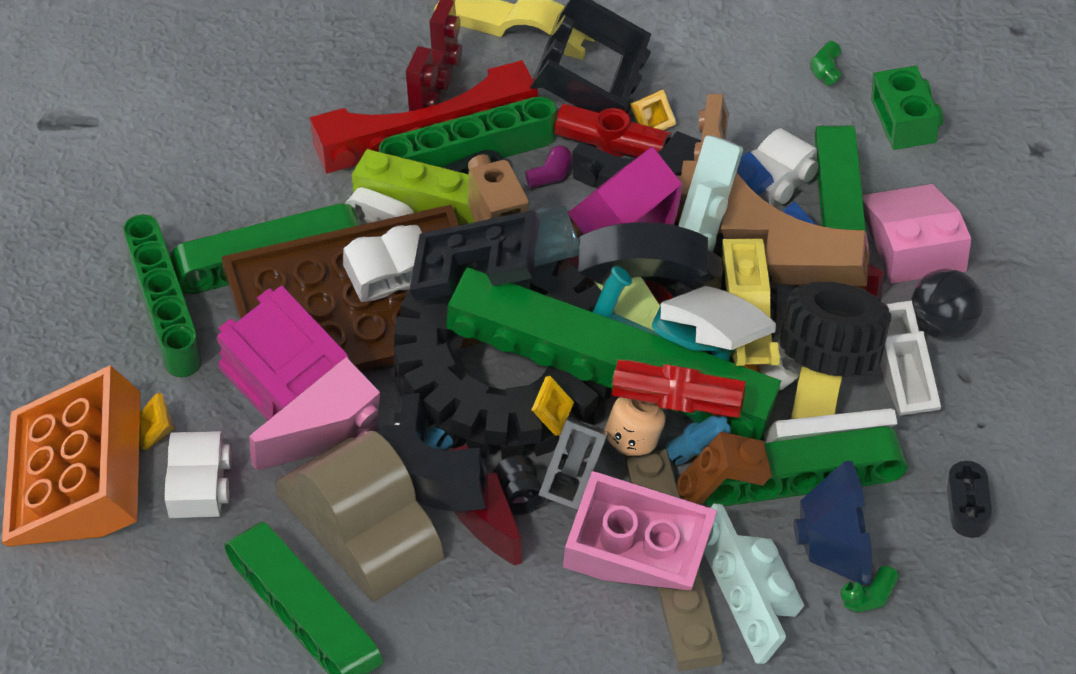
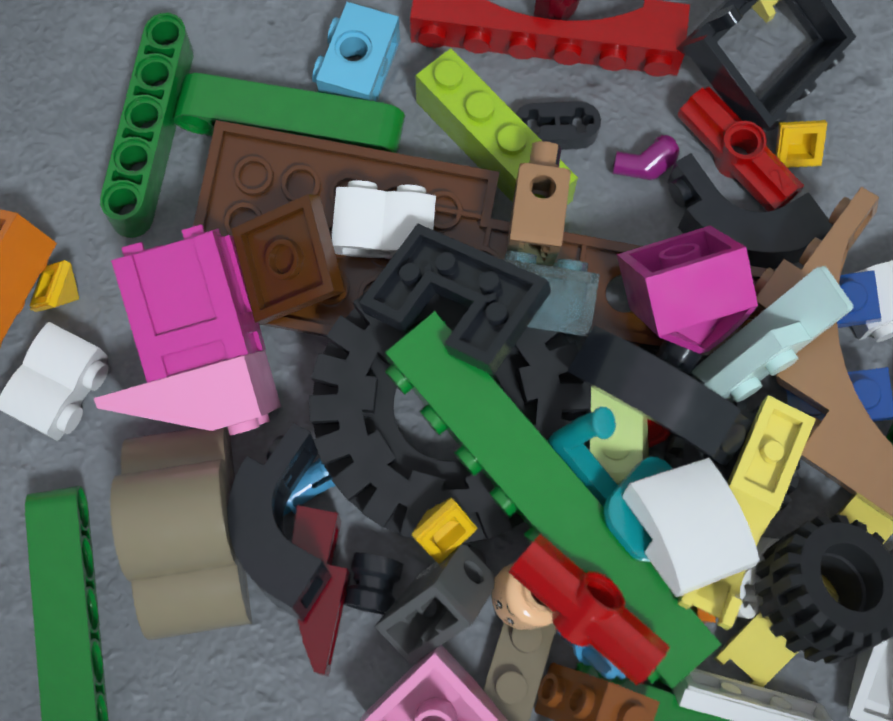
camera: 25 degrees right, 25 degrees up
(294, 183) = (363, 34): none -> medium azure brick
(340, 301) = (287, 259): none -> reddish brown plate
(374, 206) = (429, 129): white beam -> none
(503, 129) = (597, 71): green beam -> none

